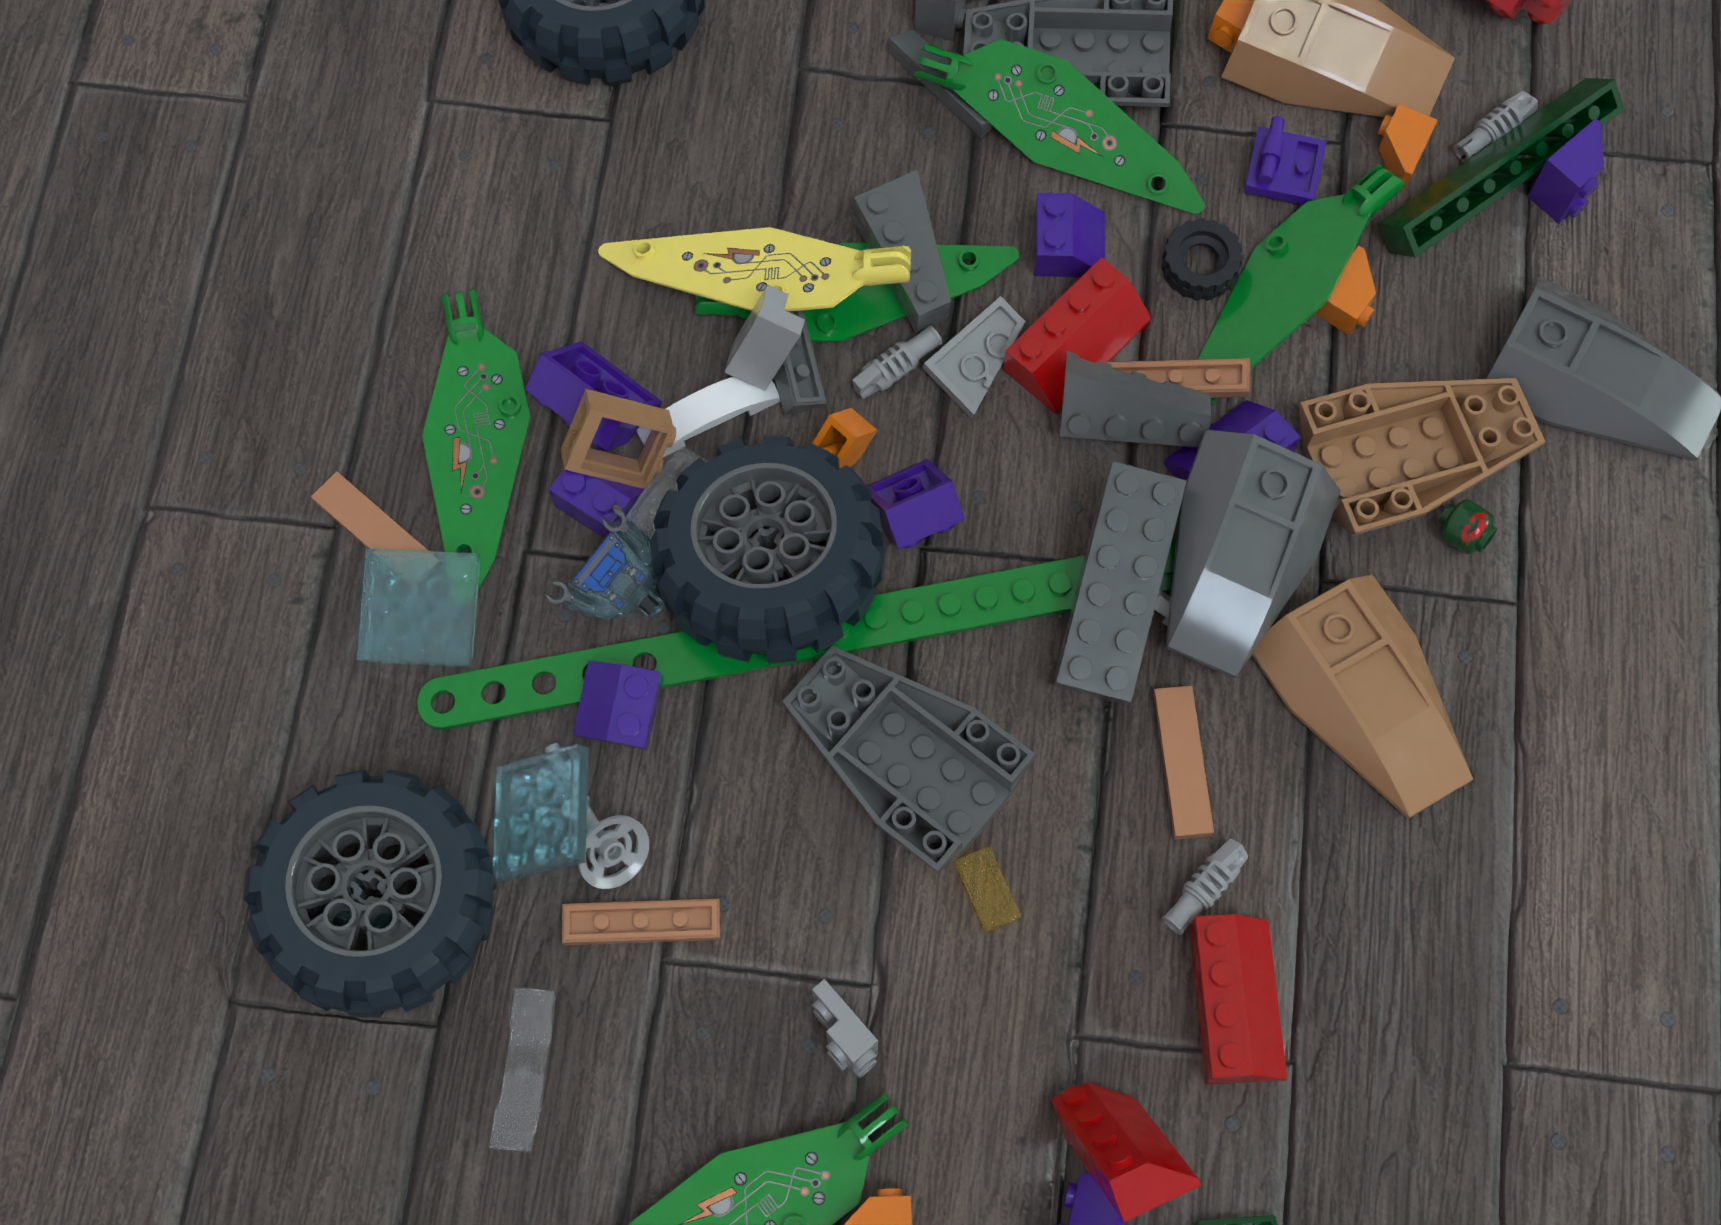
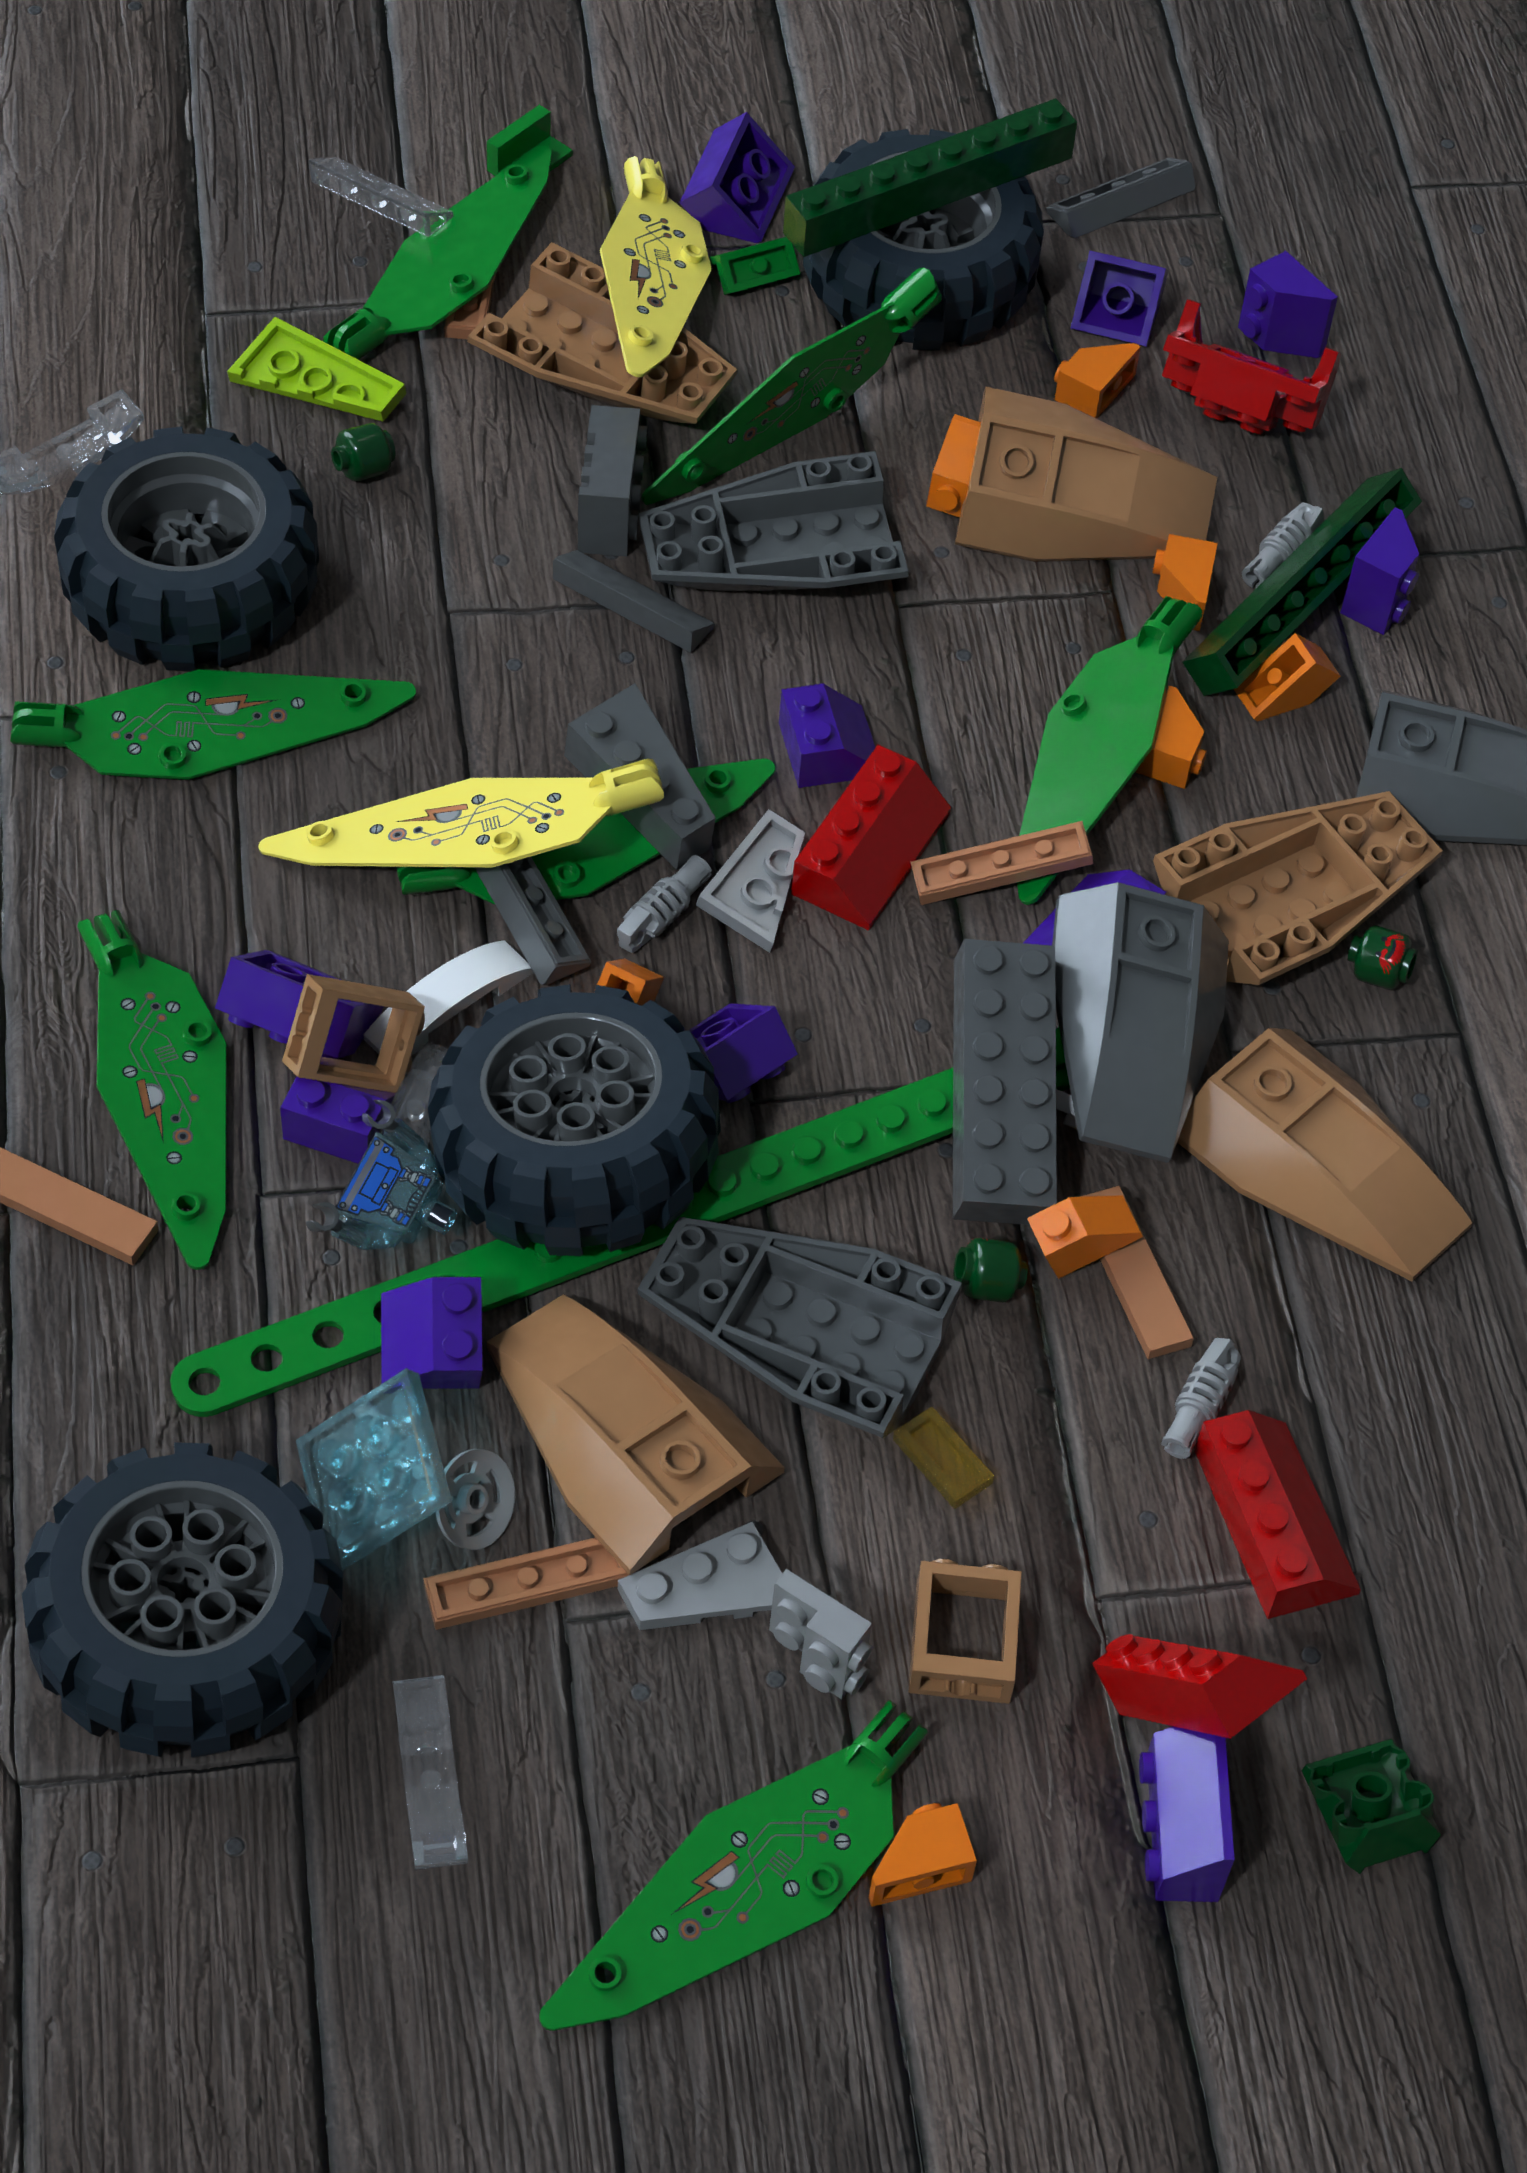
camera: 20 degrees left, 15 degrees down
(418, 607) = (145, 1278): clear light blue plate -> none
(585, 132) = (205, 720): none -> green wing
(746, 814) = (623, 1429): none -> medium nougat wedge
(764, 340) = (503, 895): light grey piece -> none
(779, 955) = (713, 1579): none -> light grey wing
(944, 1082) = (962, 1675): none -> medium nougat window
(1062, 120) = (783, 611): green wing -> none
(1066, 739) = (990, 1270): none -> dark green head
(1129, 407) = (953, 897): dark grey wedge -> none
(1149, 723) = (1083, 1230): none -> orange slope
(1207, 234) = (988, 761): black tyre -> none
(1284, 164) = (1056, 620): dark purple plate -> none
(1463, 254) = (1287, 679): none -> orange slope

